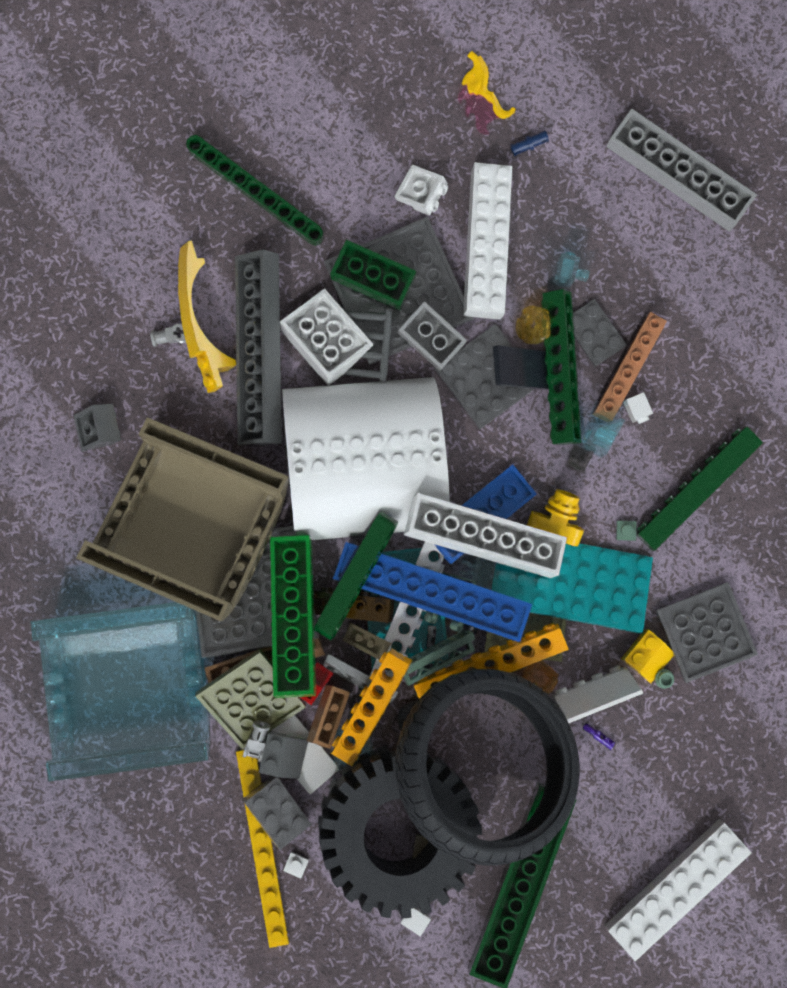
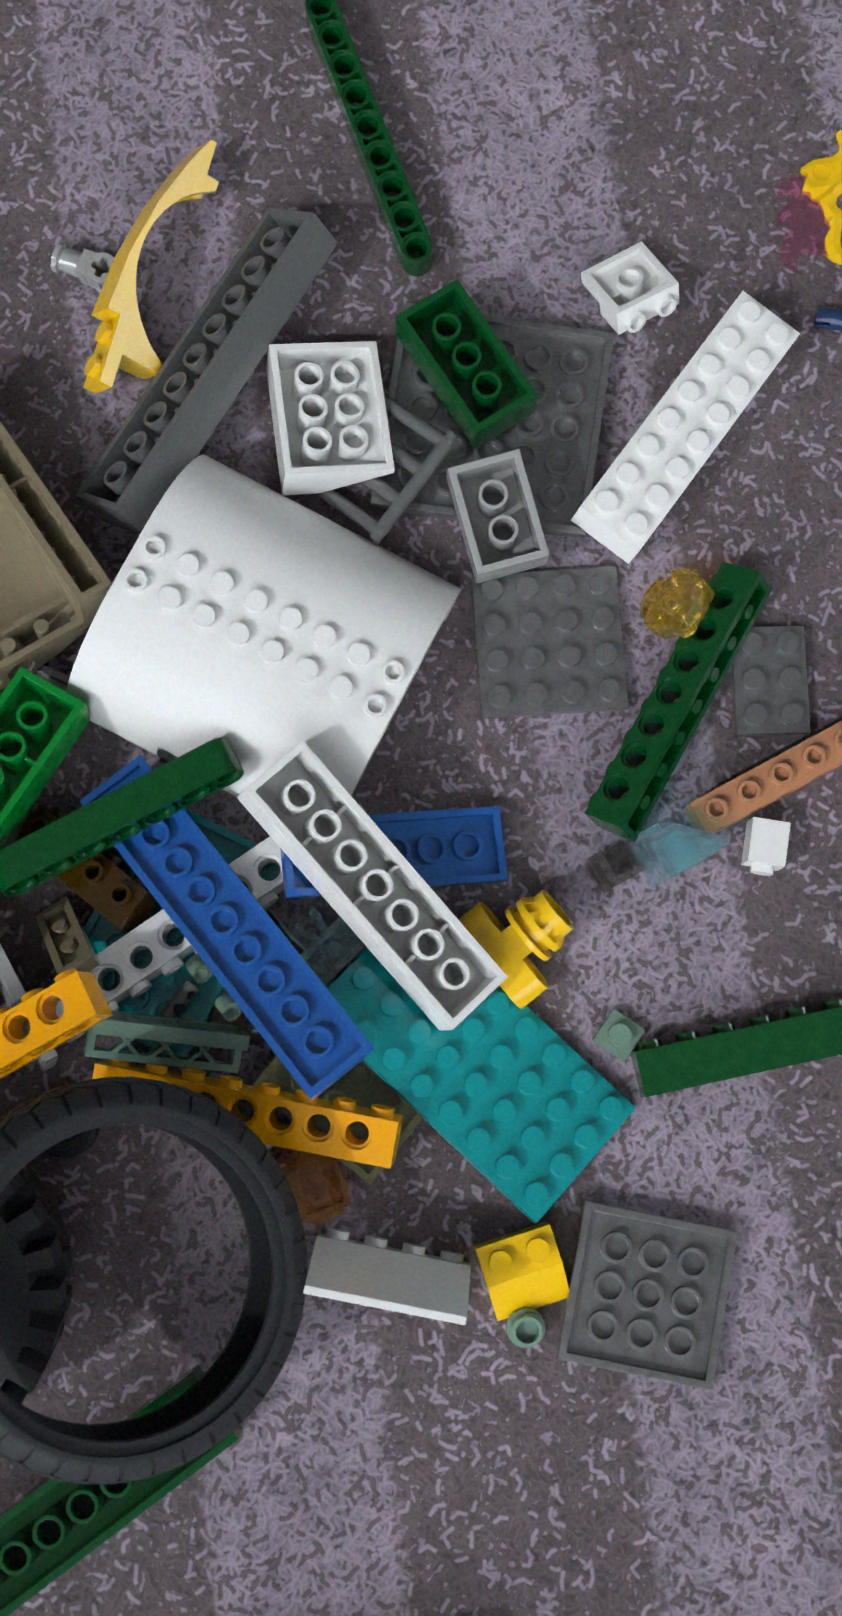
camera: 25 degrees right, 5 degrees down
(520, 367) = (608, 652): black tile -> none
(567, 270) = (786, 551): clear light blue brick -> none
(596, 734) = (349, 1347): dark purple pin -> none

